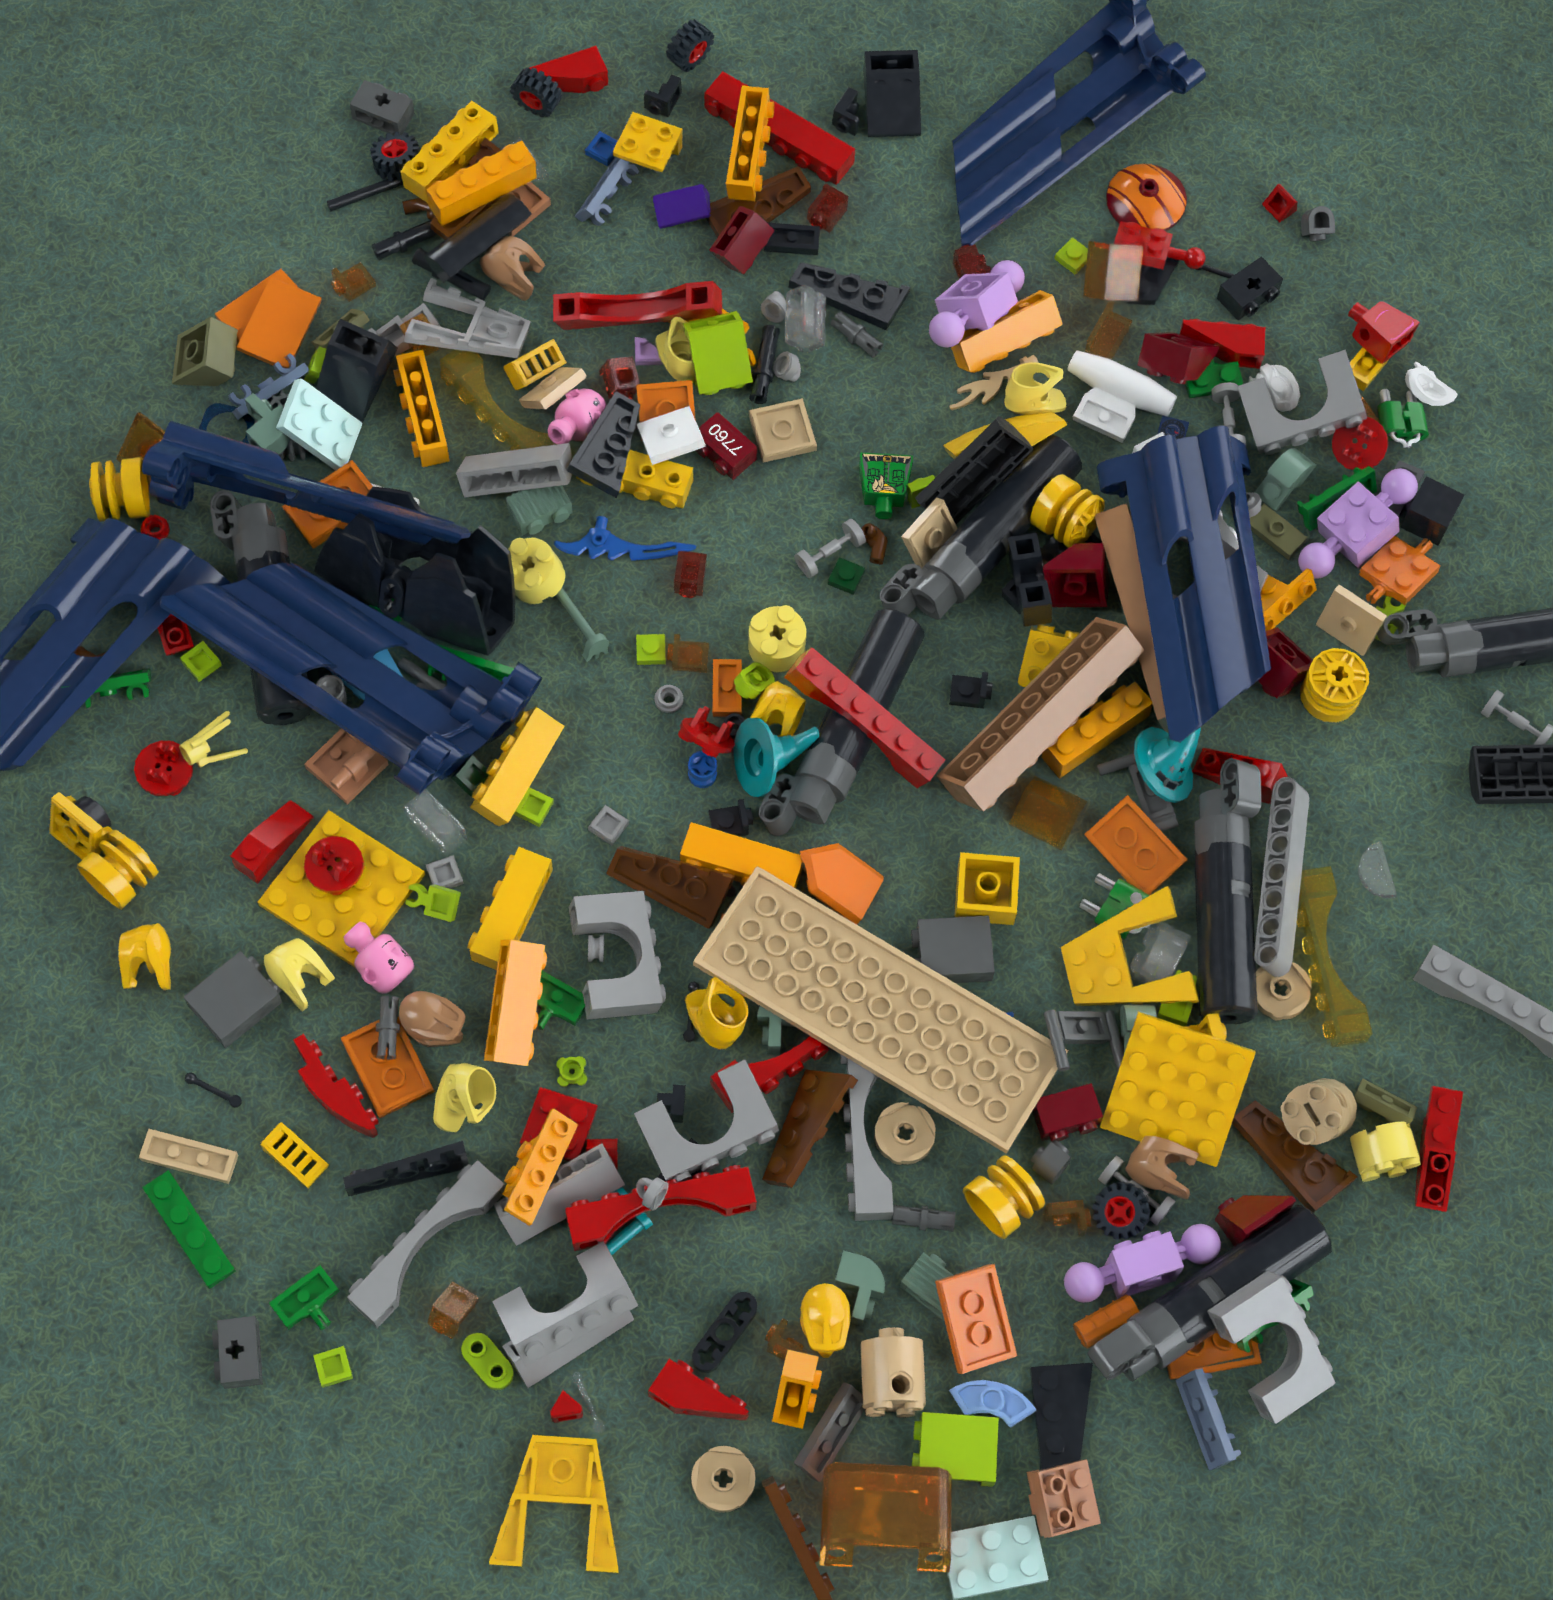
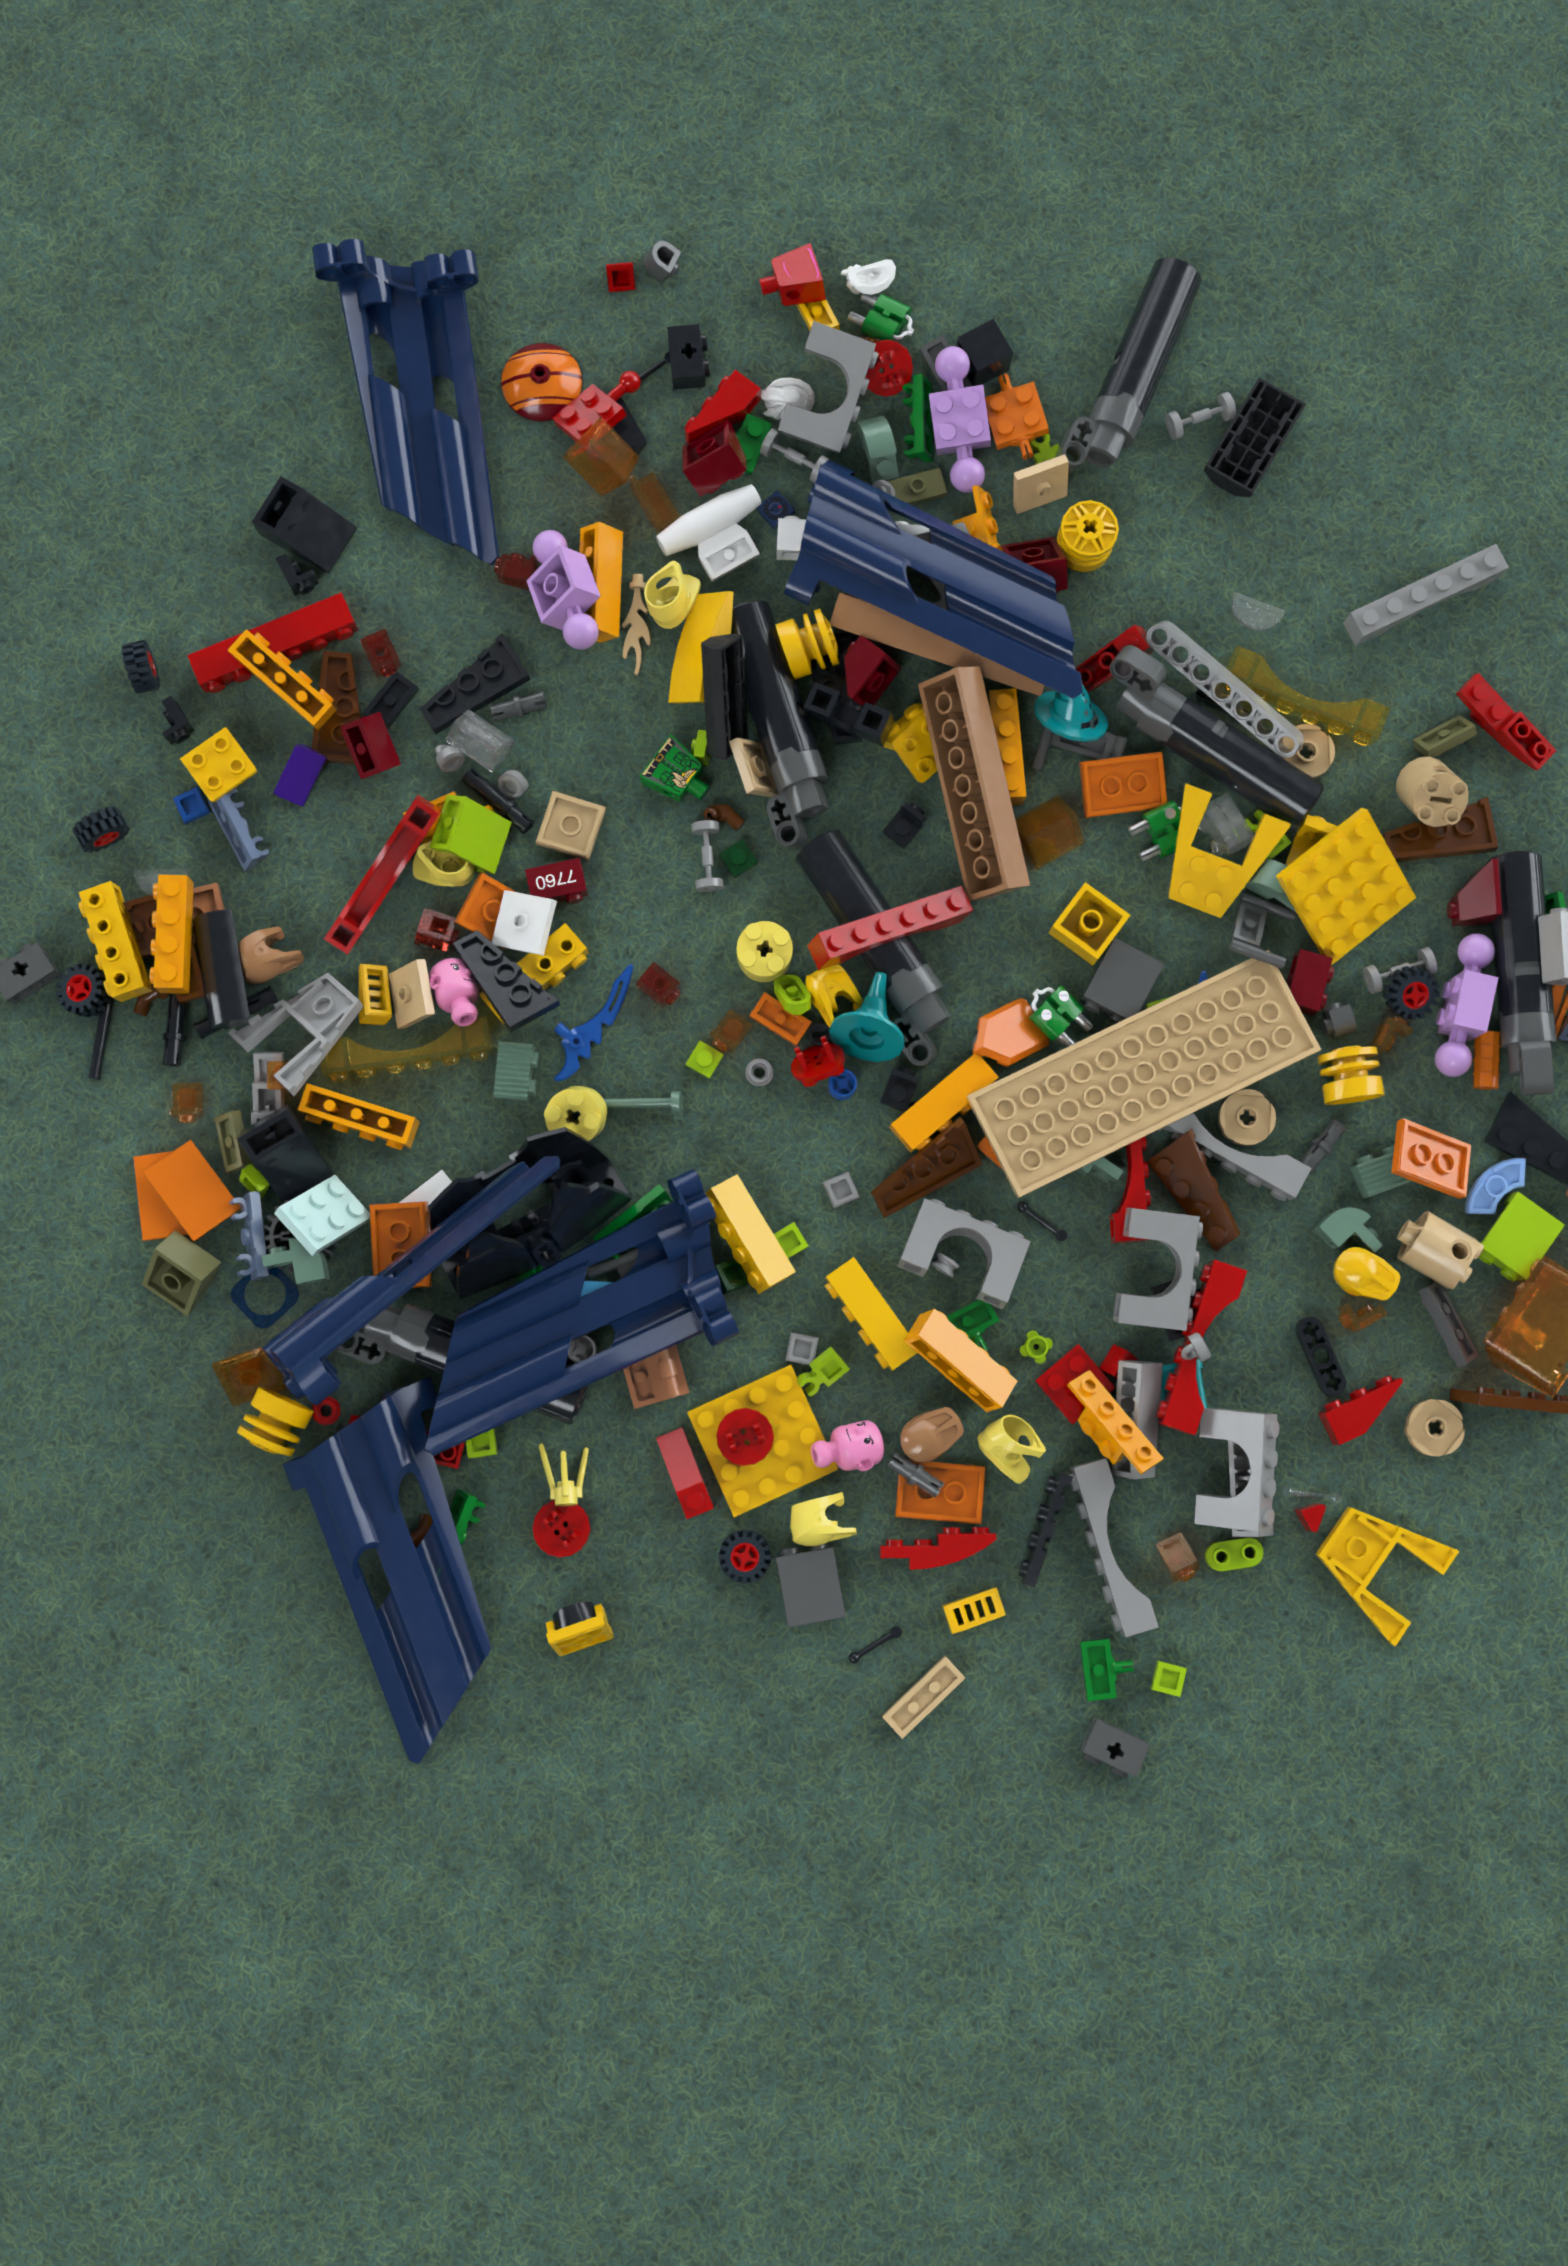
camera: 60 degrees left, 15 degrees up
(122, 864) = (639, 1619): yellow wheel -> none
(145, 944) = (723, 1632): yellow helmet -> none
(189, 1229) = (983, 1730): green plate -> none
(222, 921) = (741, 1565): none -> black wheel
(435, 823) = (759, 1331): clear brick -> none
(515, 470) = (473, 1072): light grey brick -> none
(577, 71) = (99, 782): red slope -> none
(646, 353) = (420, 893): lavender tile -> none
(674, 1102) = (1115, 1282): black tile -> none
(714, 1018) = (1050, 1204): yellow helmet -> none
(795, 1389) = (1407, 1330): light orange brick -> none
(888, 910) = (1057, 1013): none -> green piece
(1072, 256) = (558, 478): lime plate -> none
(1149, 1163) = (1388, 946): medium nougat helmet -> none
(1385, 1150) = (1488, 763): light yellow brick -> none

